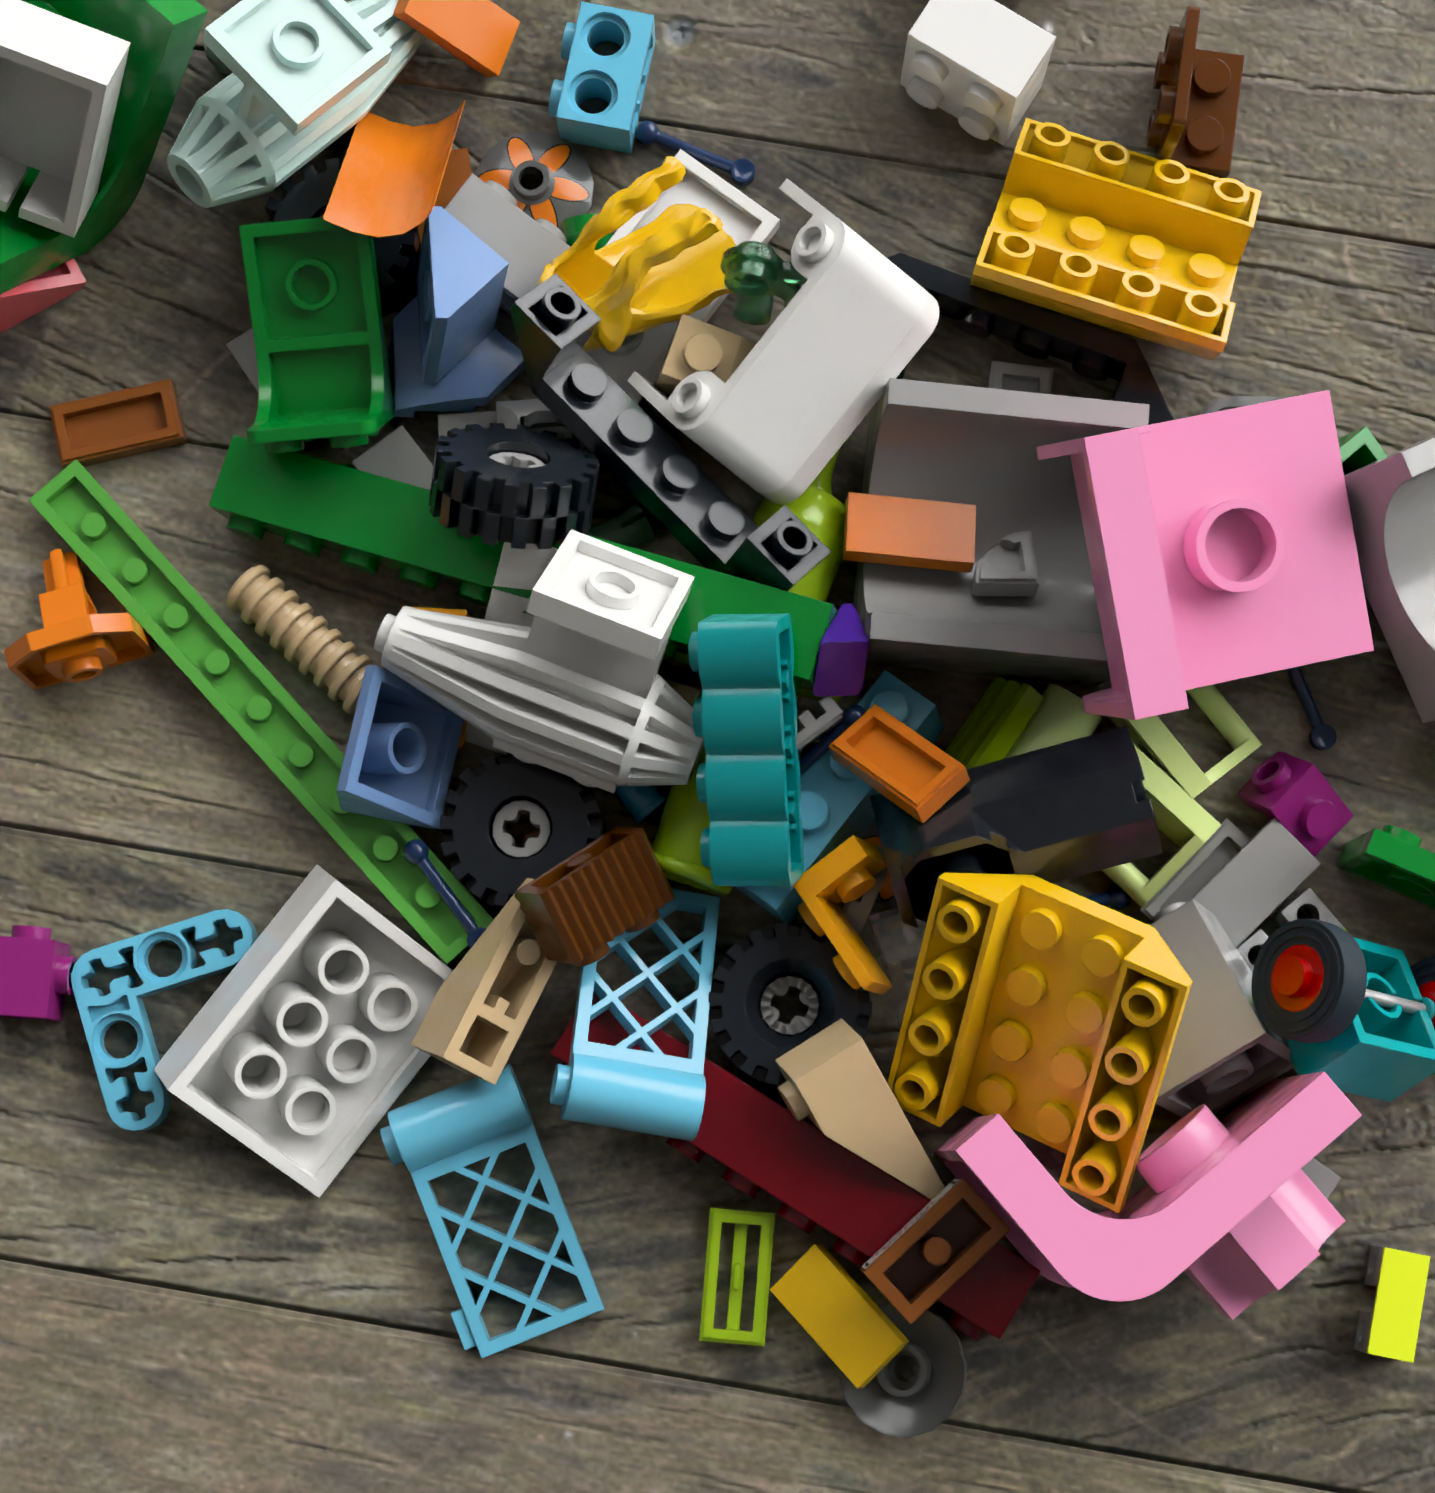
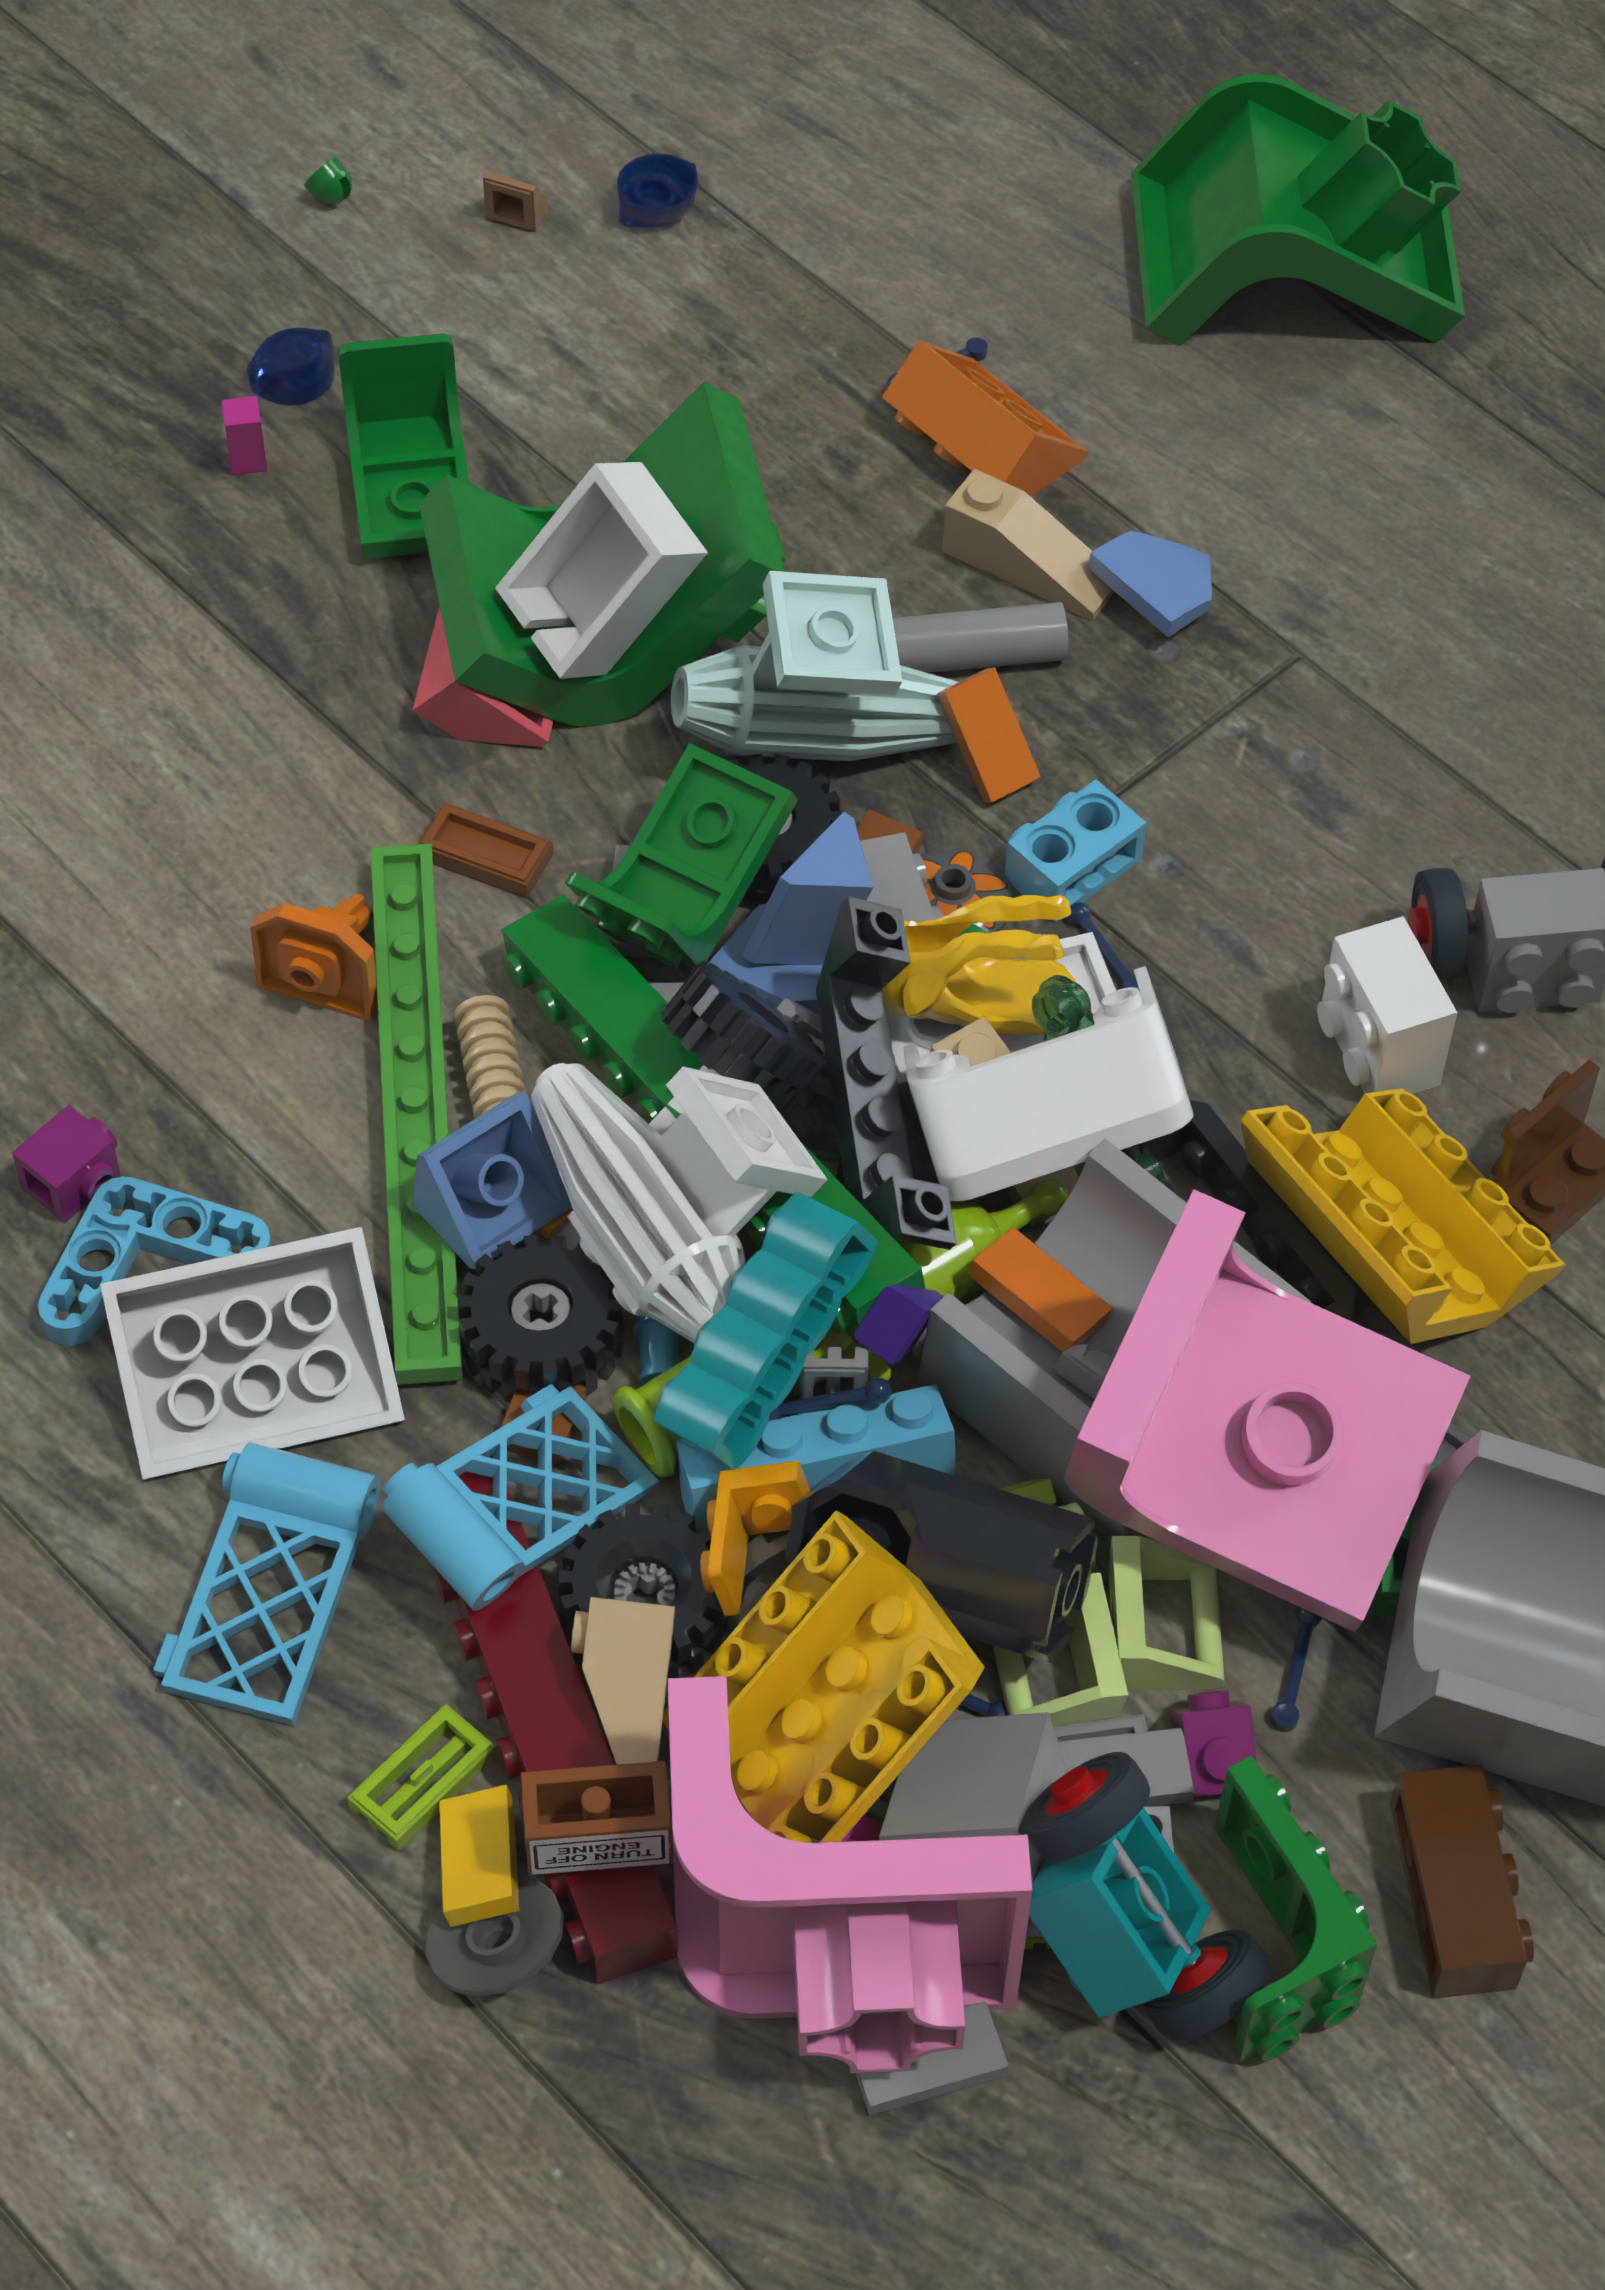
camera: 35 degrees right, 25 degrees down
(391, 175) = (832, 786): orange sticker -> none
(417, 853) = (437, 1366): dark blue hinge -> none
(487, 998) = (426, 1399): tan slope -> none
(595, 897) = (553, 1376): reddish brown brick -> none
(899, 763) = (880, 1426): orange tile -> none
(1397, 1306) = (947, 2213): neon yellow piece -> none

